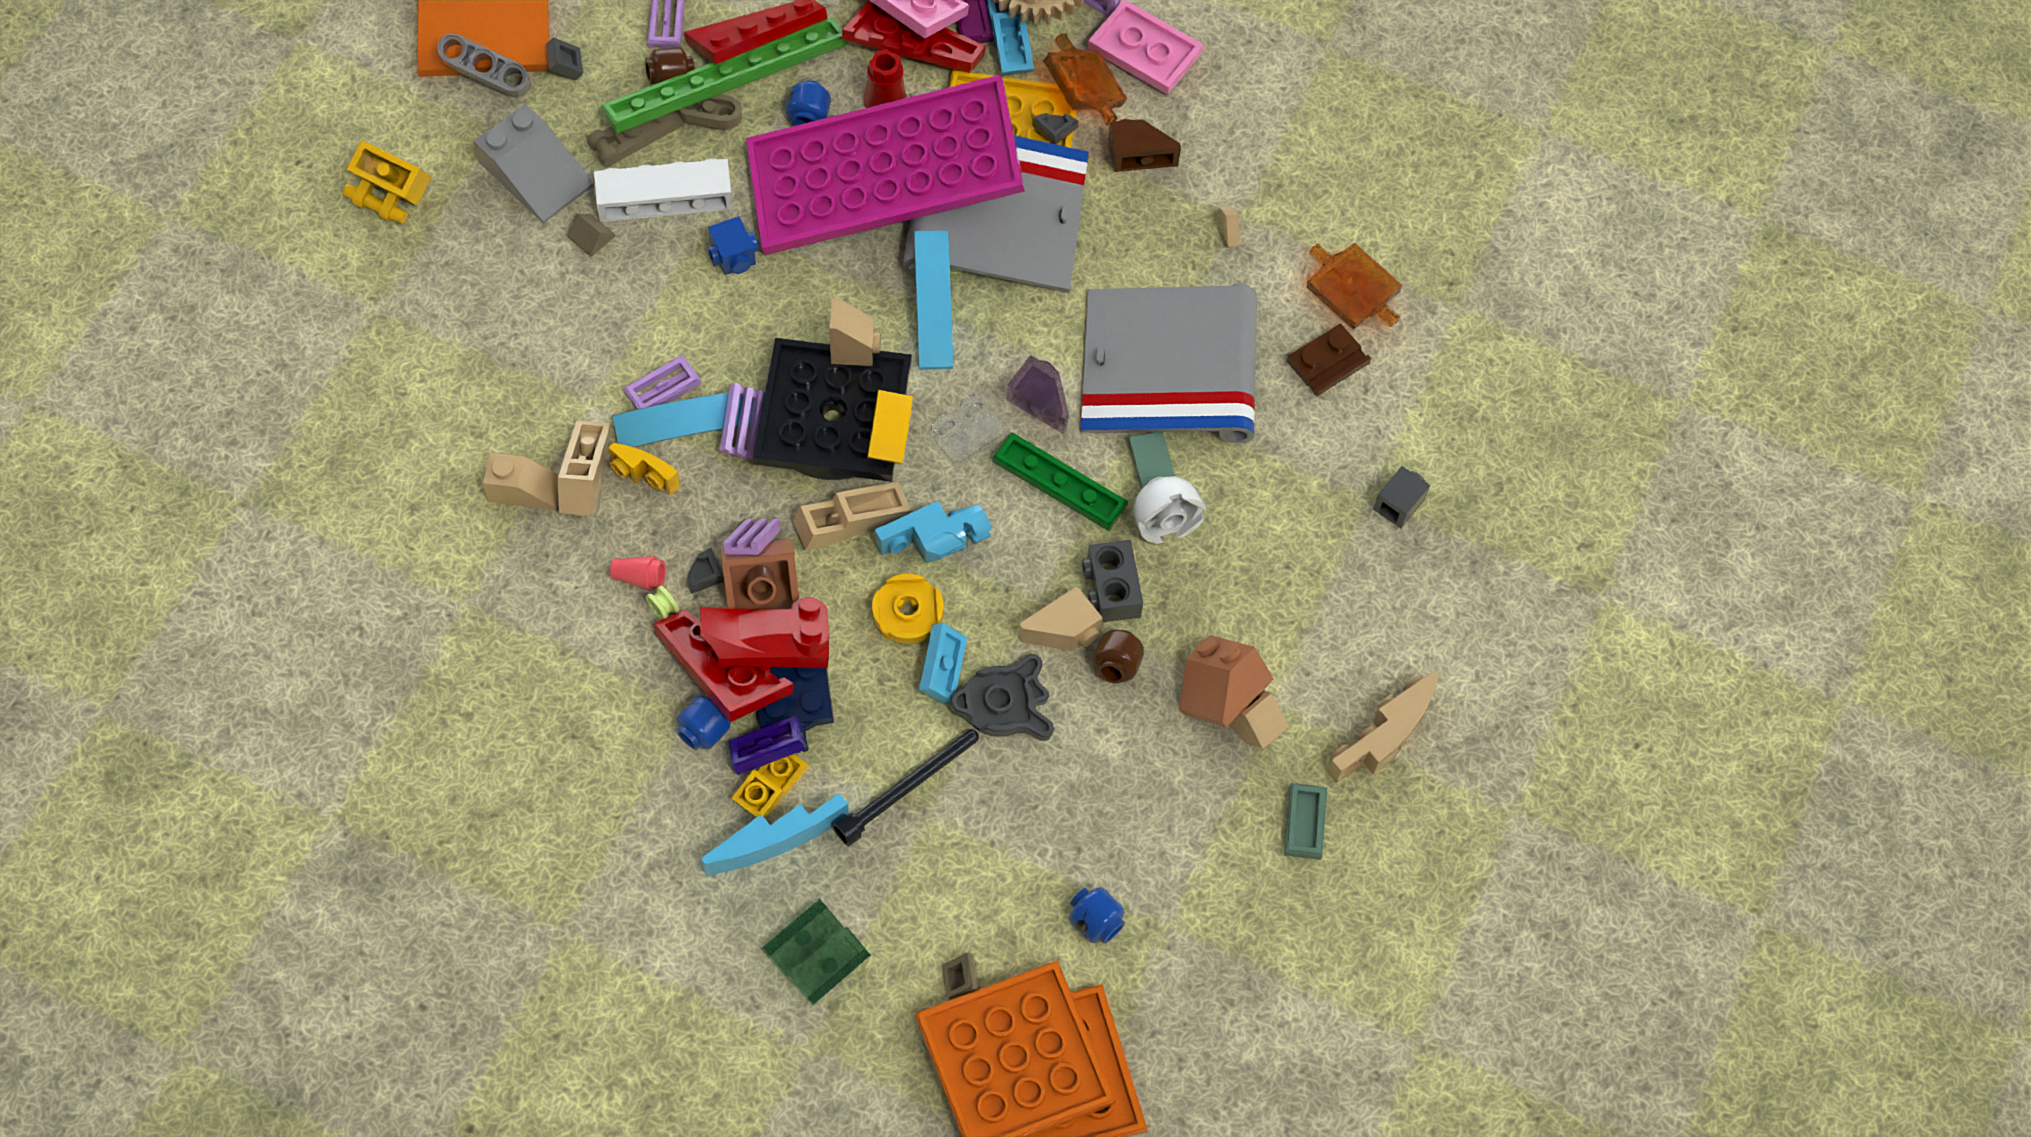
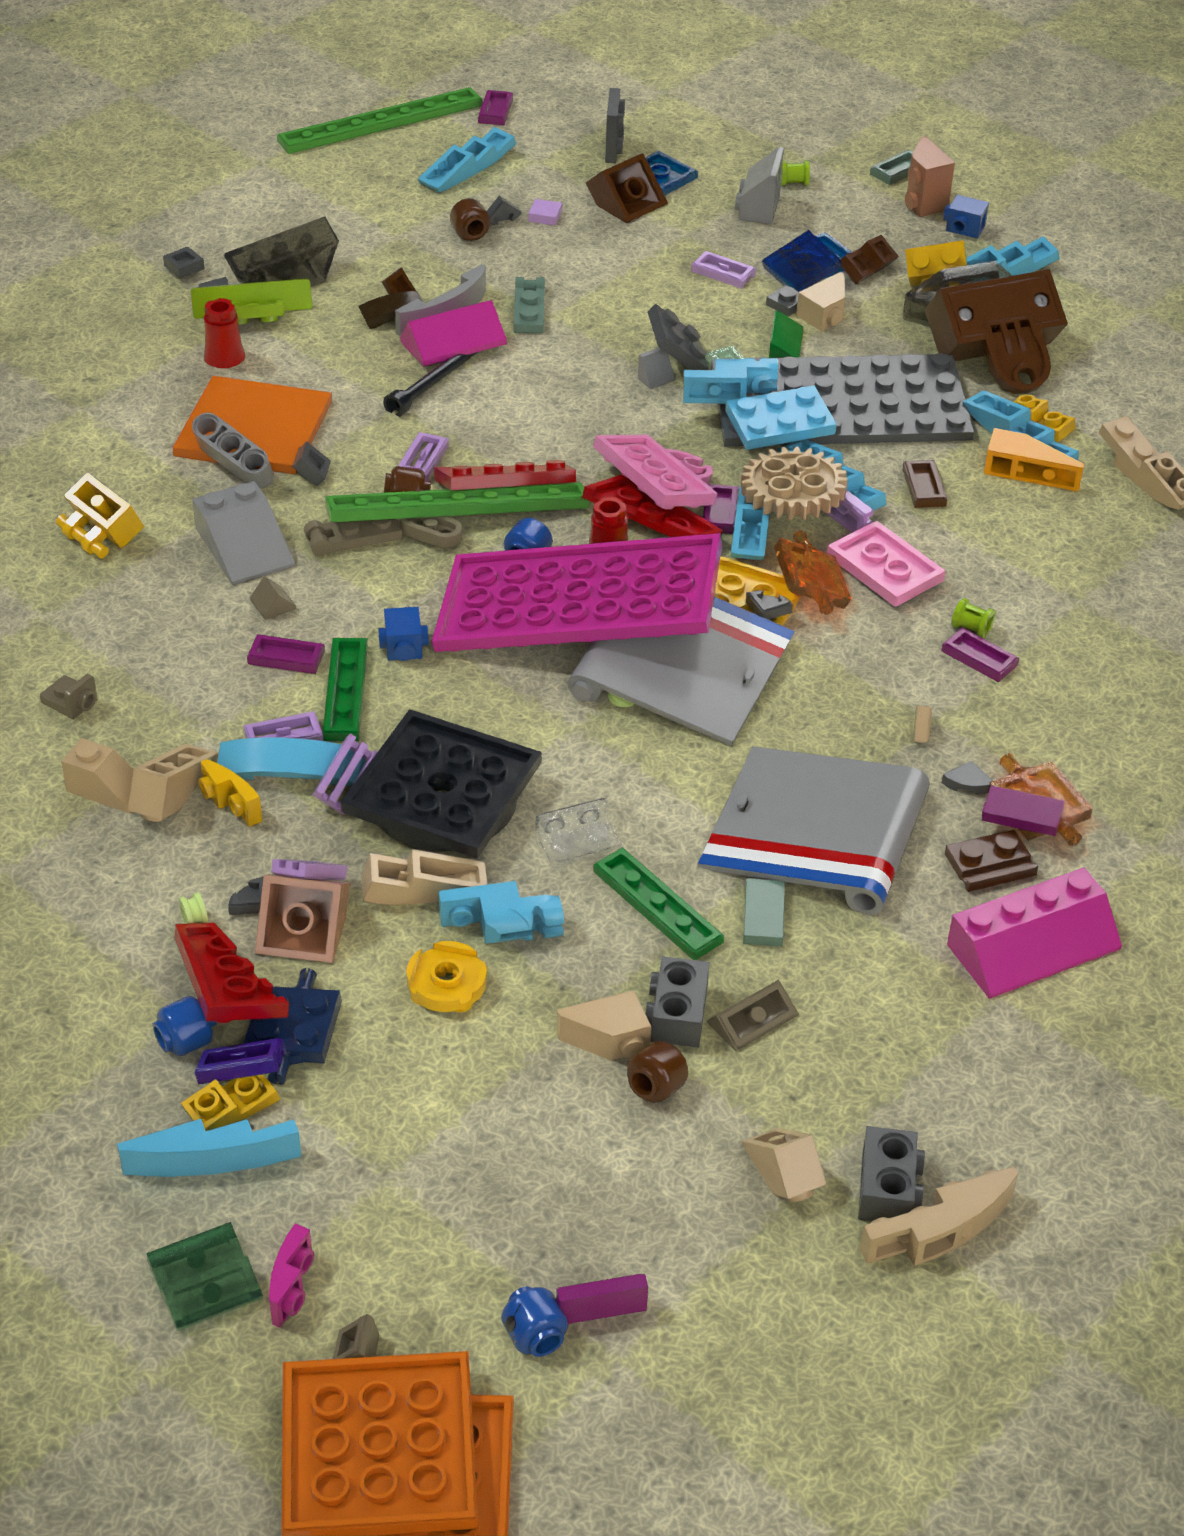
camera: 20 degrees right, 20 degrees down
(447, 396) = (70, 696): none -> dark tan bracket
(628, 293) = (286, 654): none -> magenta tile
(639, 571) = (184, 878): coral cone -> none
(663, 190) = (356, 577): white brick -> none
(699, 320) = (345, 689): none -> green tile
(769, 636) = (286, 960): red slope -> none
(850, 827) = (296, 1163): black piece -> none
(852, 335) = (481, 712): tan slope -> none
(888, 940) = (286, 1281): none -> dark pink slope
(890, 427) = (489, 802): yellow slope -> none
(933, 300) = (584, 716): medium azure slope -> none
(943, 663) = (462, 1033): medium azure plate -> none
(1005, 700) = (517, 1086): dark grey tile -> none
(1040, 393) = (662, 817): clear purple slope -> none
(1141, 146) = (851, 639): reddish brown slope -> none
(1145, 879) = (603, 1298): none -> magenta tile
(1168, 507) = (762, 945): white cylinder -> none
(1176, 574) = (754, 1016): none -> dark tan slope
(1221, 680) = (763, 1113): nougat slope -> none
(1242, 93) = (973, 617): none -> lime bush
(1258, 132) = (980, 654): none -> magenta tile
(1286, 276) = (968, 778): none -> tile
(1305, 821) = (816, 1291): sand green tile -> none
(1327, 702) = (890, 1173): none -> dark grey brick
(1346, 306) = (1023, 810): none -> magenta tile
(1387, 430) = (1034, 932): none -> dark pink slope
(1401, 496) = (1031, 997): dark grey brick -> none

